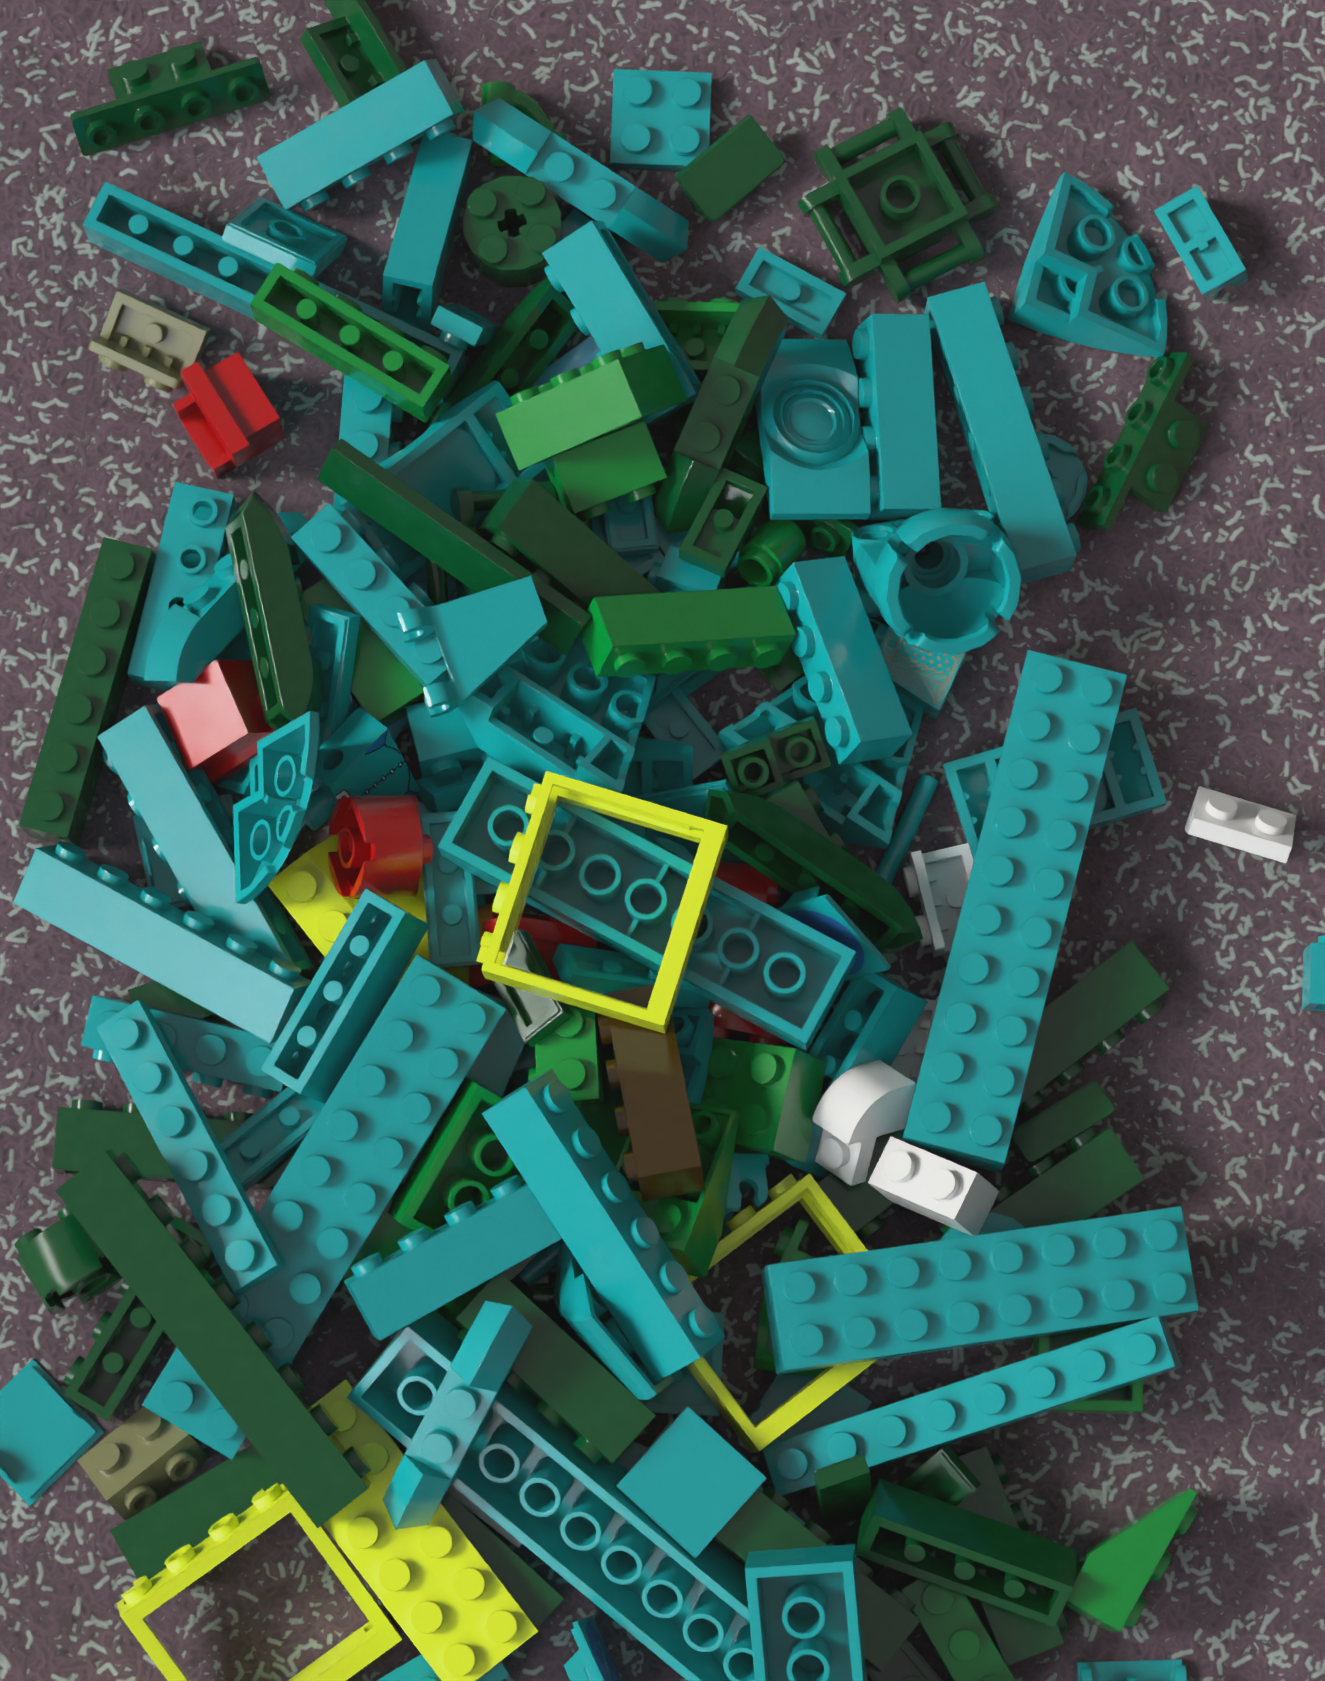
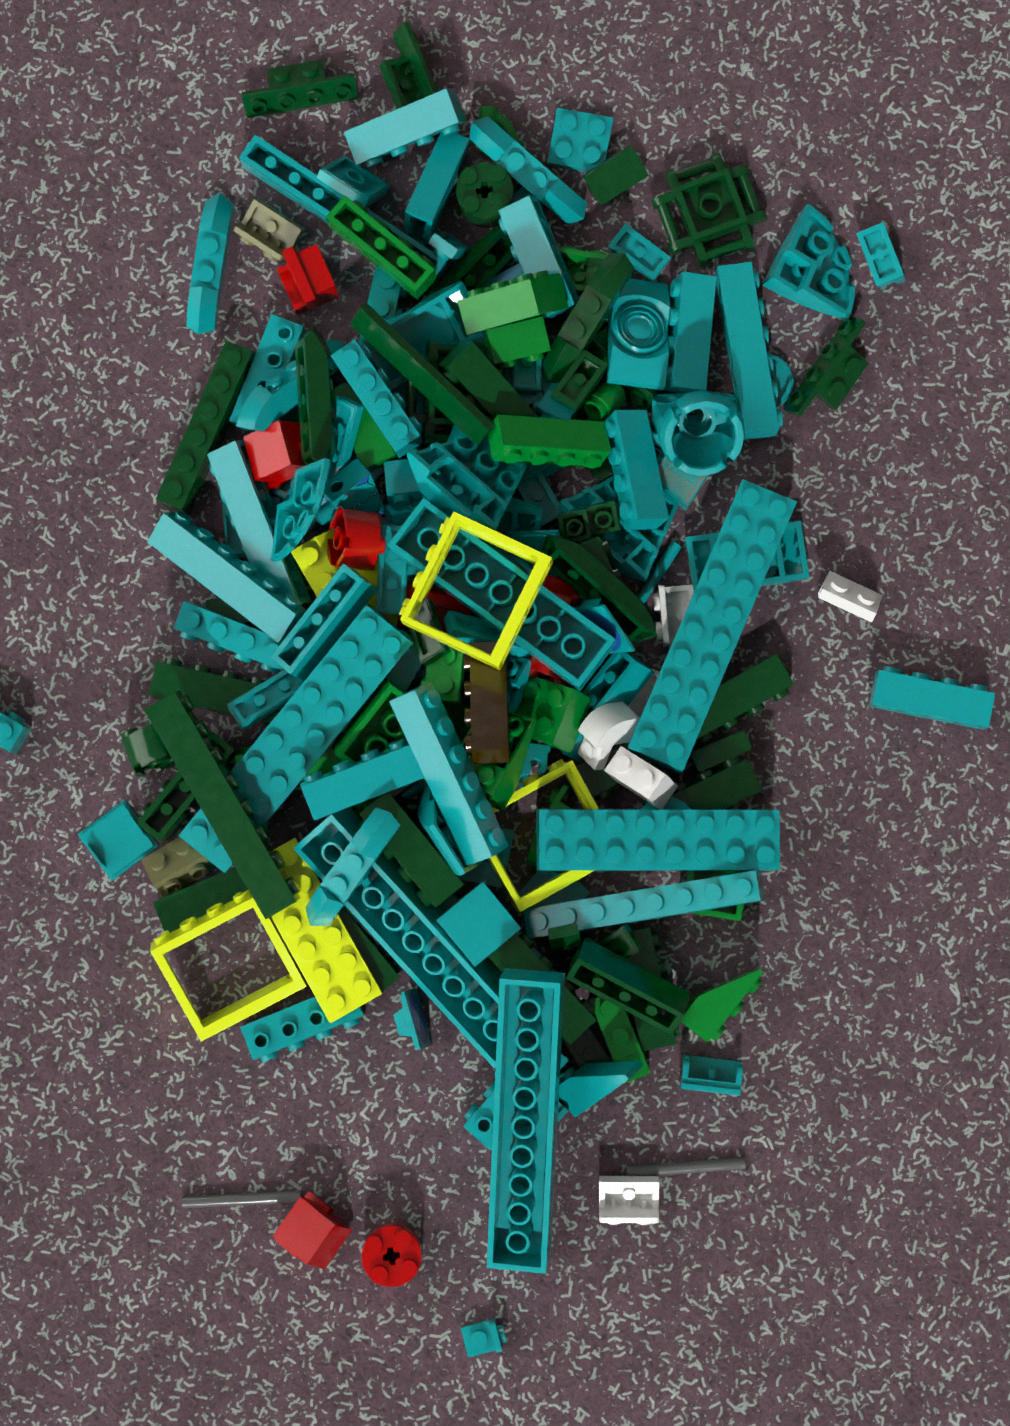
camera: 20 degrees right, 5 degrees up
(55, 412) = (209, 264): none -> teal brick
(190, 1147) = (224, 695): teal plate -> none
(475, 637) = (426, 428): teal flag -> none

